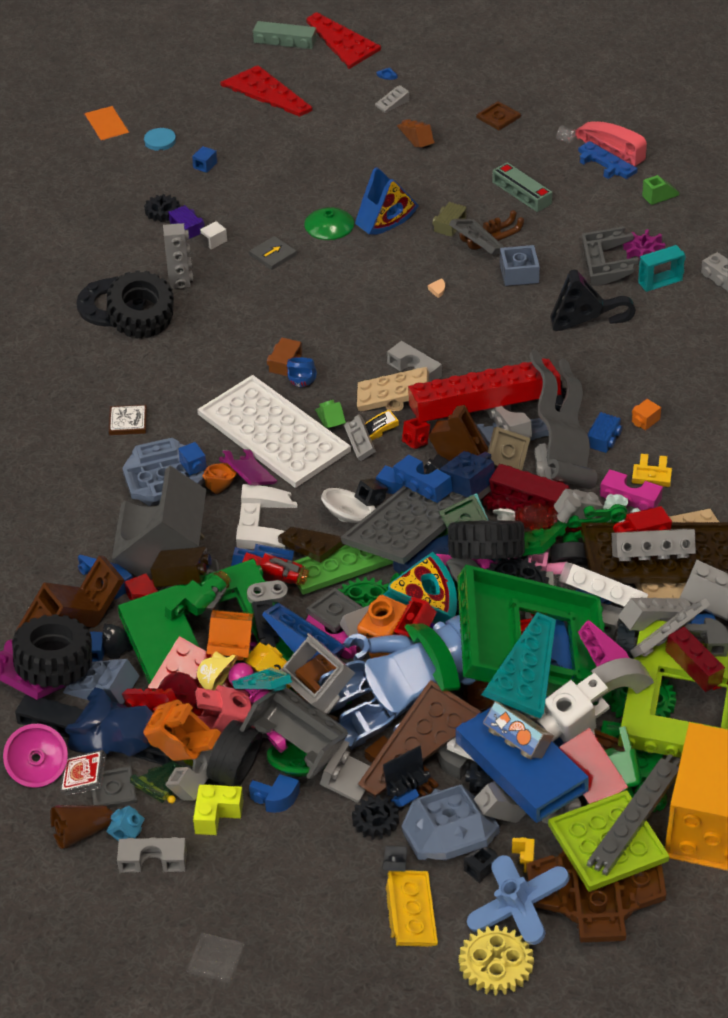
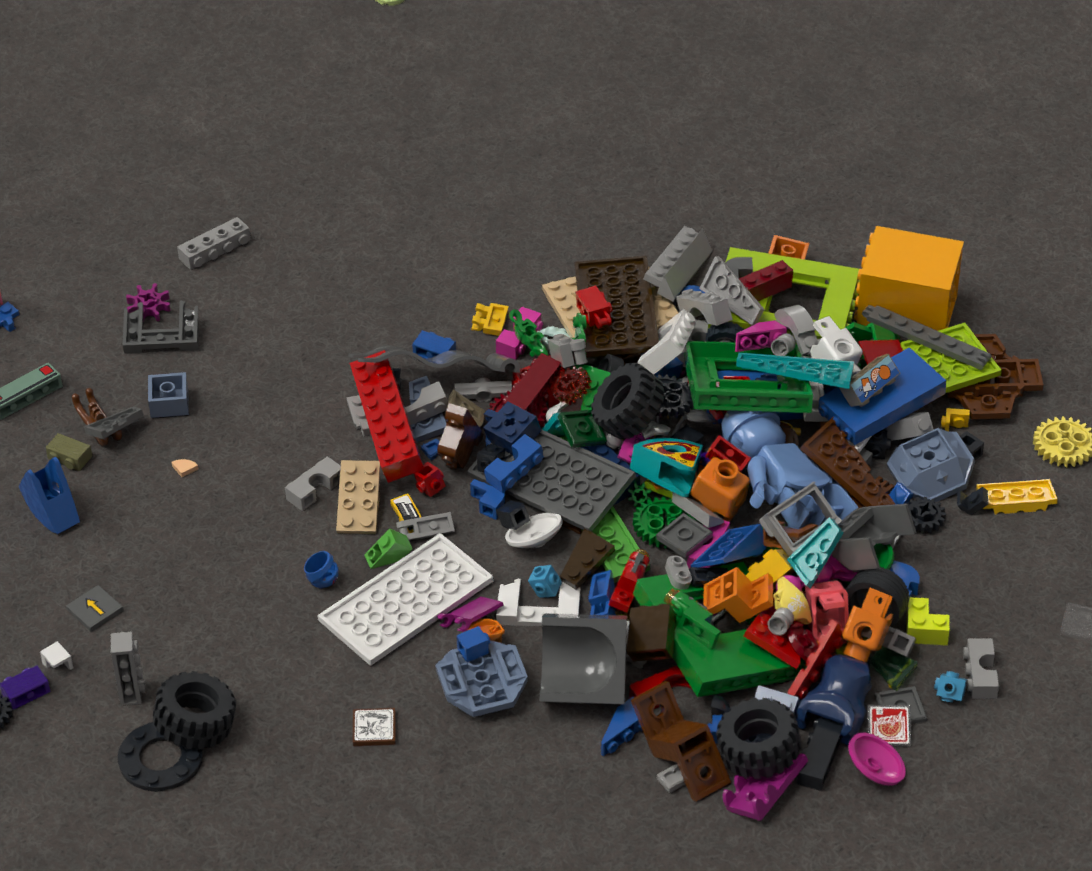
camera: 90 degrees left, 0 degrees up
(78, 822) = (955, 723): reddish brown cone -> none
(193, 664) = (780, 621): none -> light grey wheel
(282, 352) = (289, 589): dark orange brick -> none
(284, 515) = (545, 581): none -> dark azure brick
(329, 223) = (47, 560): green dish -> none
(405, 772) = (891, 482): black hinge -> none
(446, 671) = (757, 440): green slope -> none
(517, 899) = (1014, 426): medium blue piece -> none
(584, 303) = (255, 336): black piece -> none
(585, 667) = (783, 345): none -> light grey wheel
(612, 480) = (526, 333): none -> green animal
(646, 268) = (197, 286): teal window -> none
(646, 414) = (411, 316): orange brick -> none
(653, 543) = (623, 299): light grey brick -> none
(657, 190) = (57, 286): bright green slope -> none

